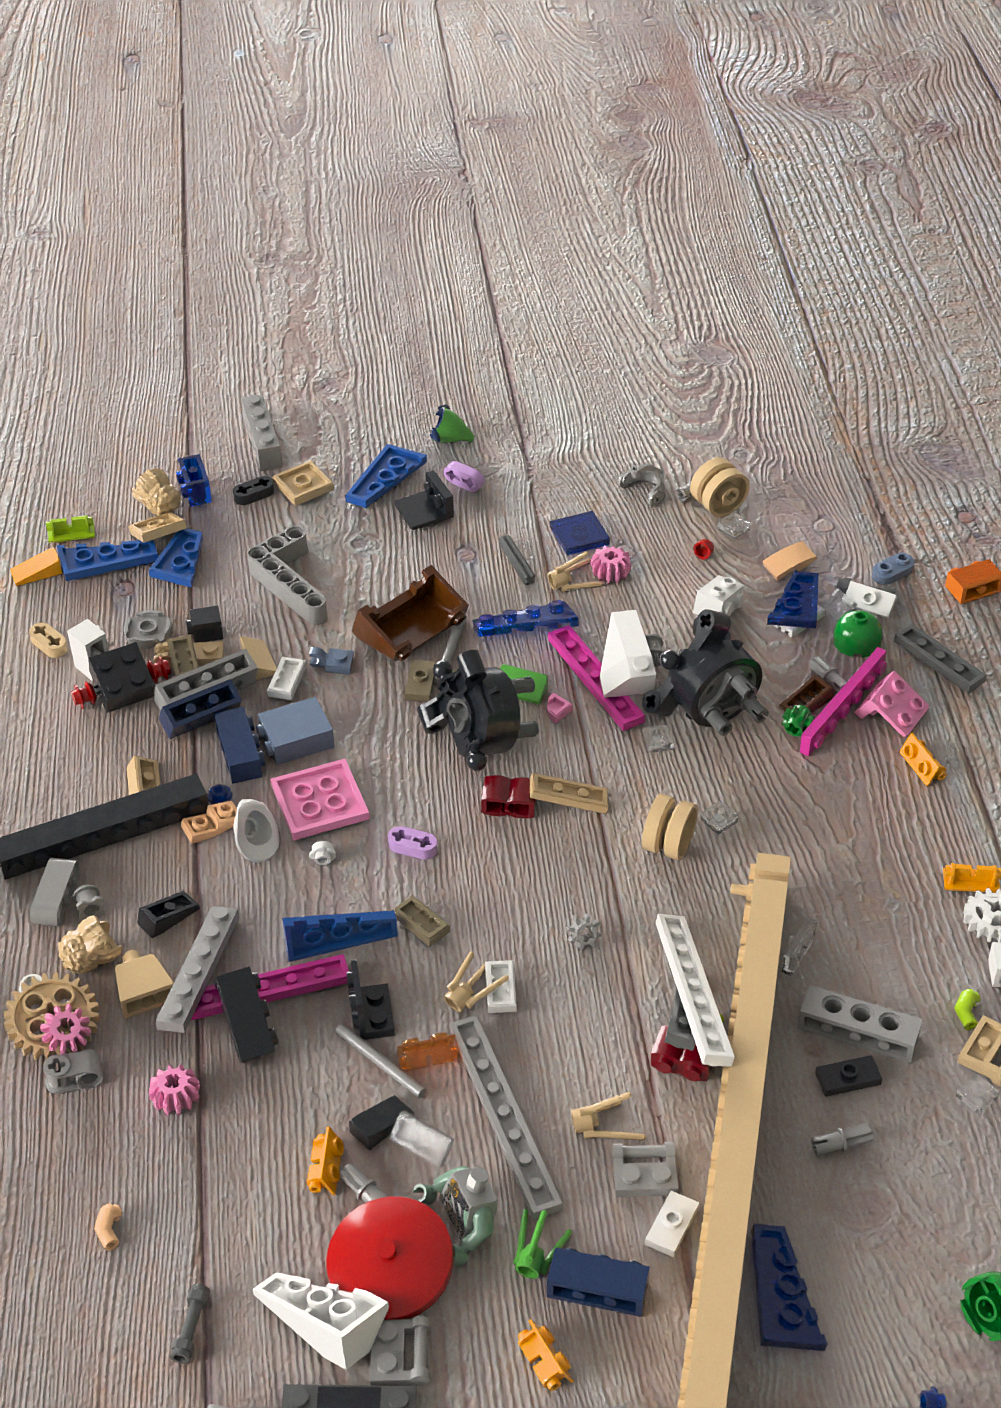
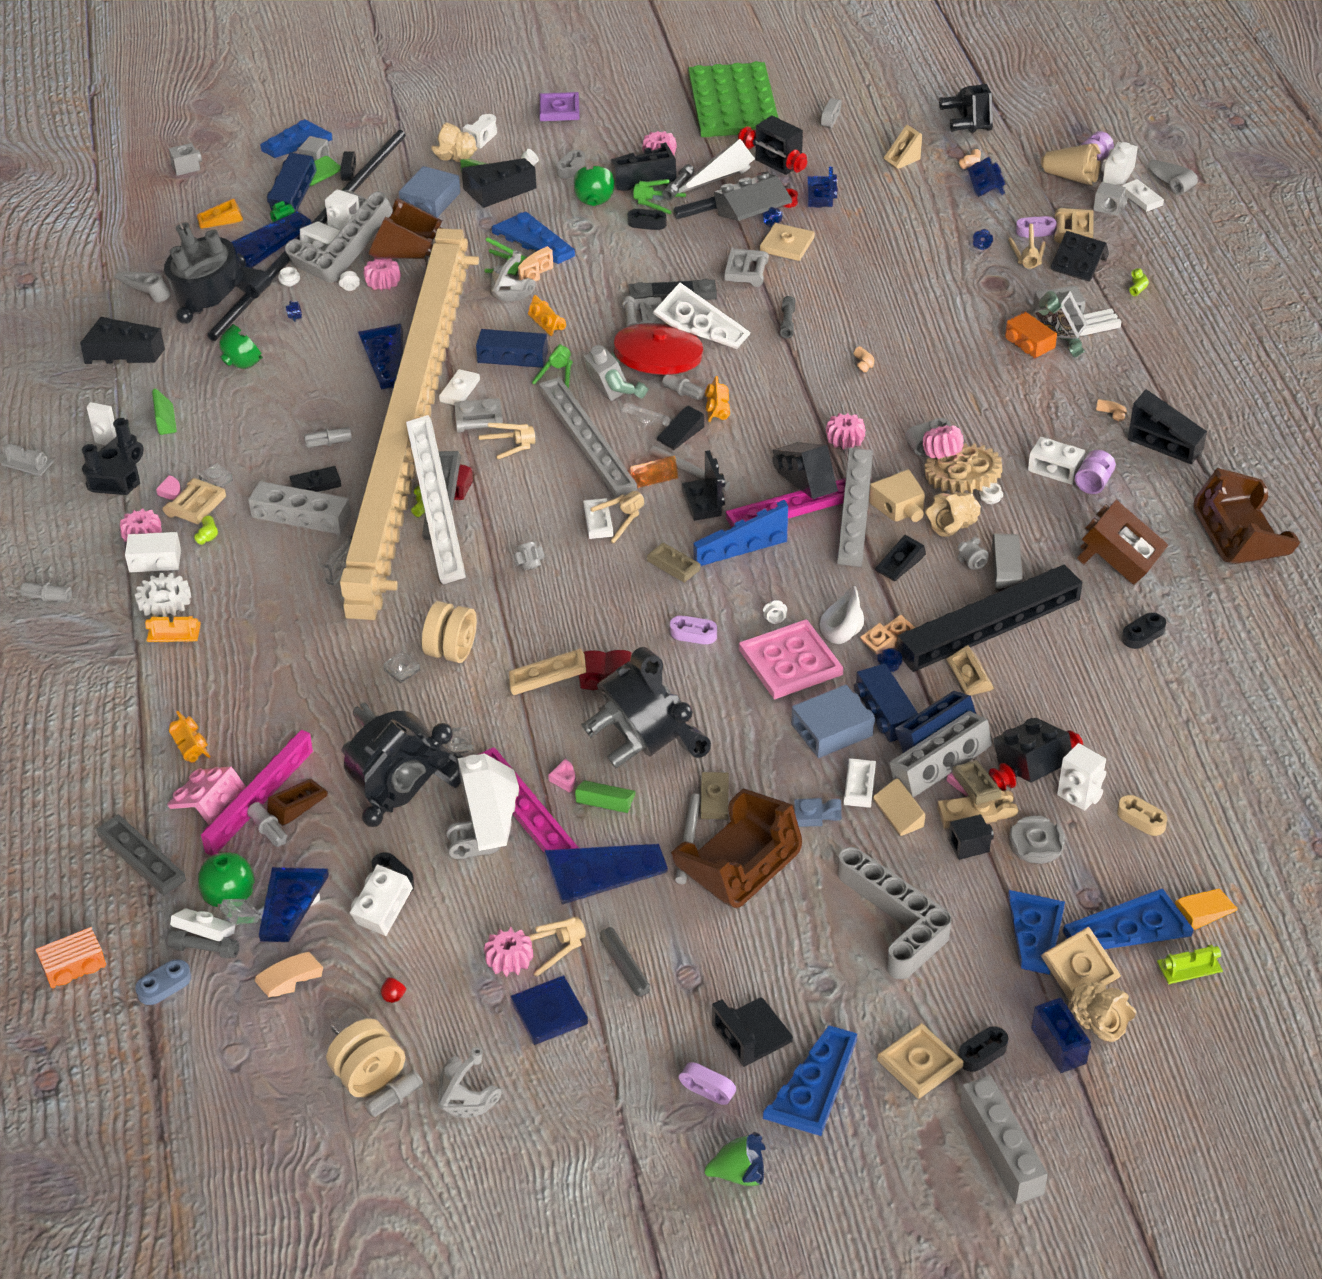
camera: 175 degrees right, 0 degrees up
(797, 720) = (310, 762): green gear -> none

